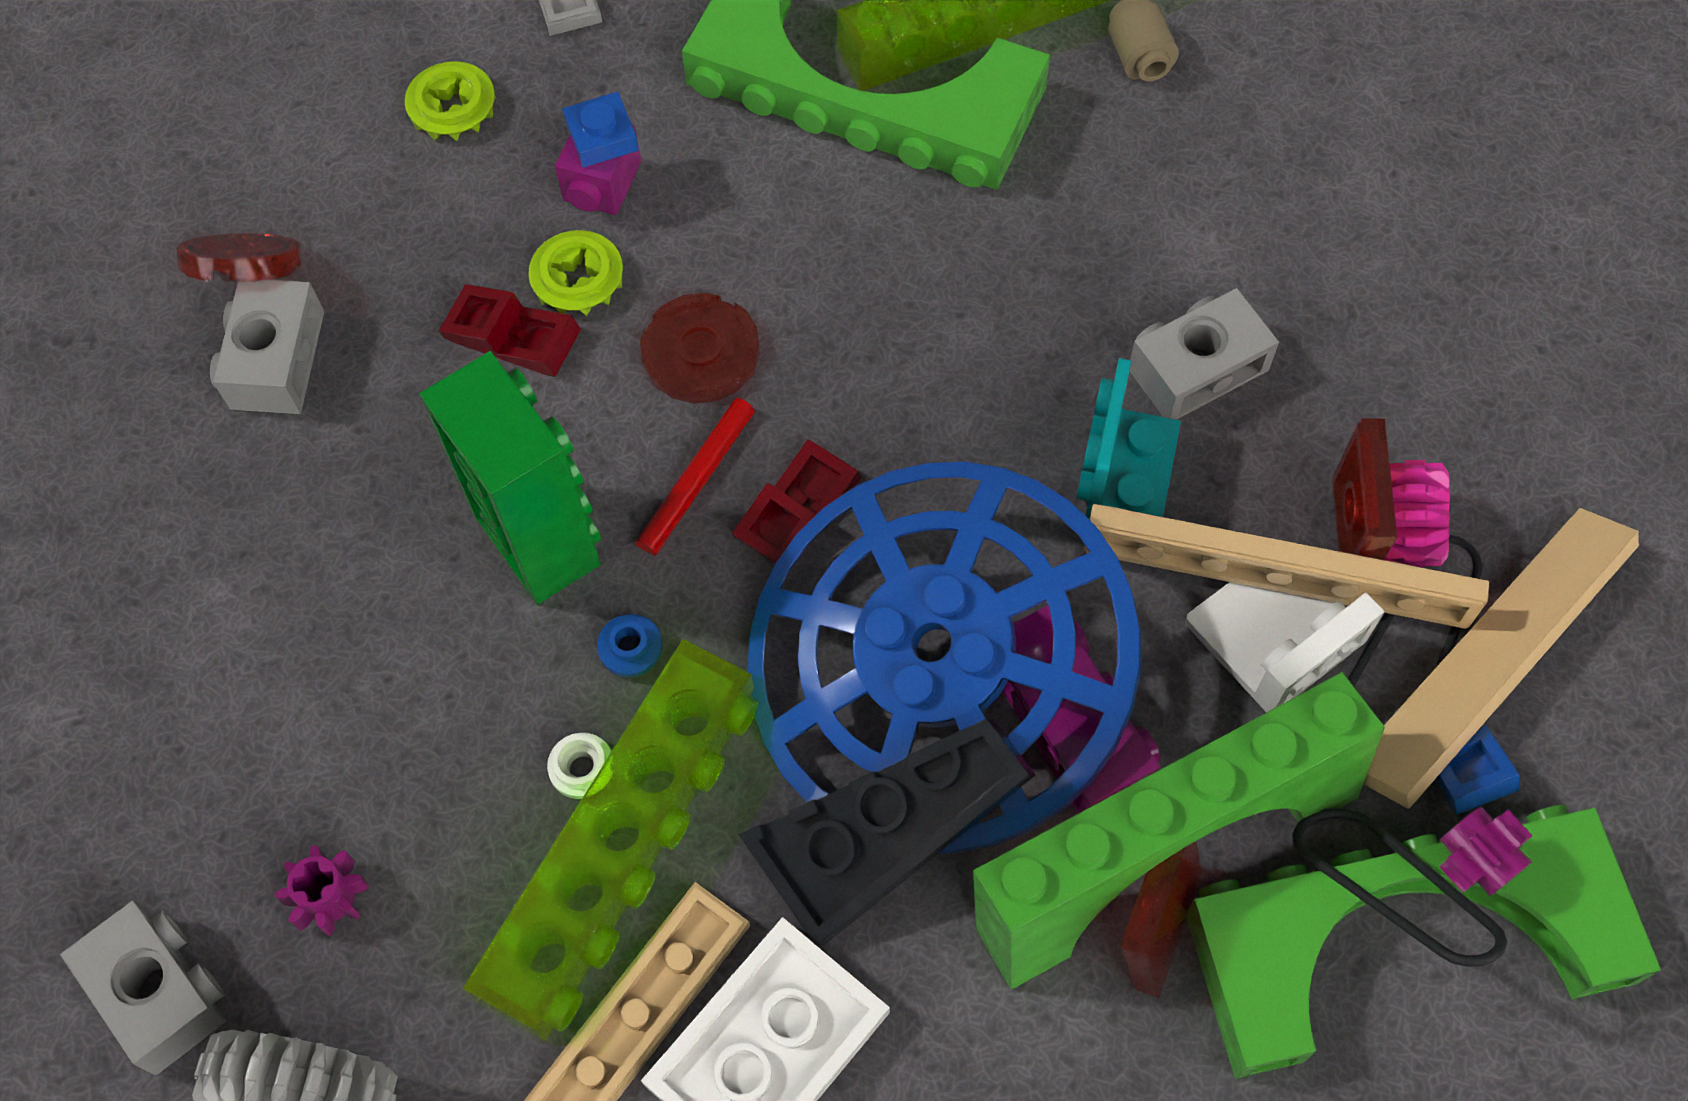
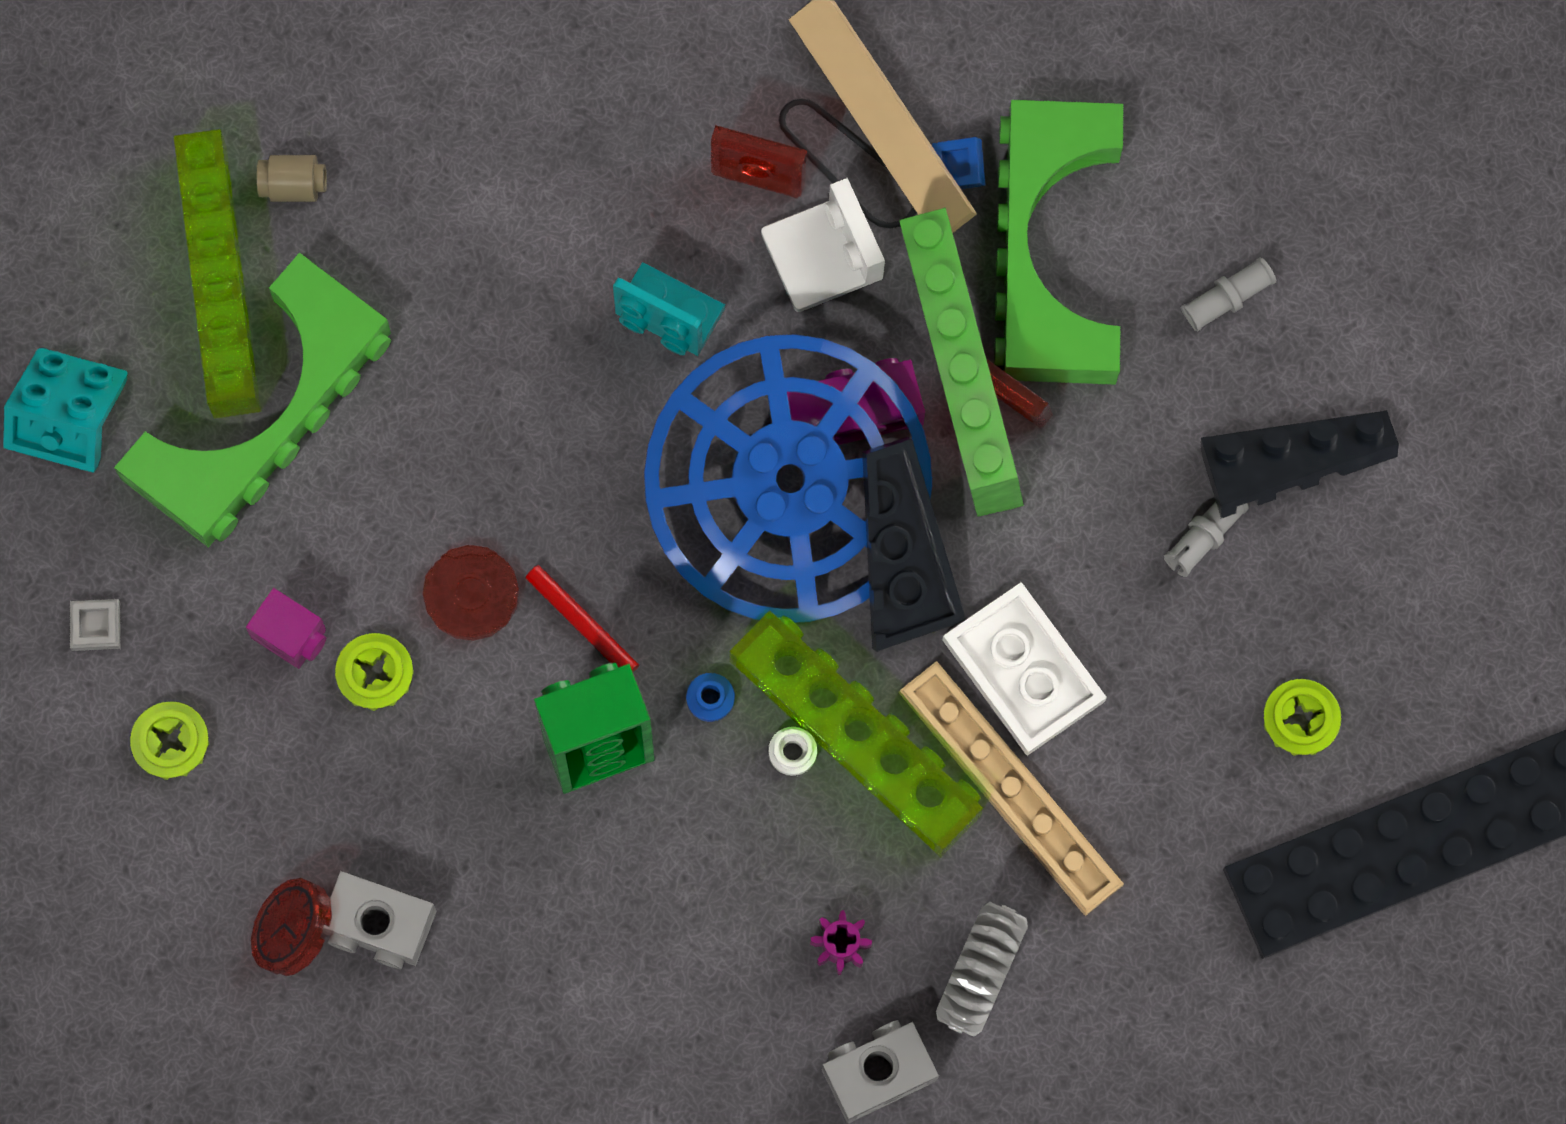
camera: 80 degrees left, 10 degrees up
(517, 334) = (411, 734): dark red slope -> none
(600, 129) = (275, 612): blue plate -> none
(799, 495) = (629, 553): dark red slope -> none
(1223, 328) = (597, 203): light grey brick -> none
(1290, 567) = (788, 230): tan tile -> none
(1420, 513) = (773, 123): dark pink gear -> none
(1445, 953) = (1091, 190): black piece -> none
(1485, 851) = (1029, 177): magenta gear -> none

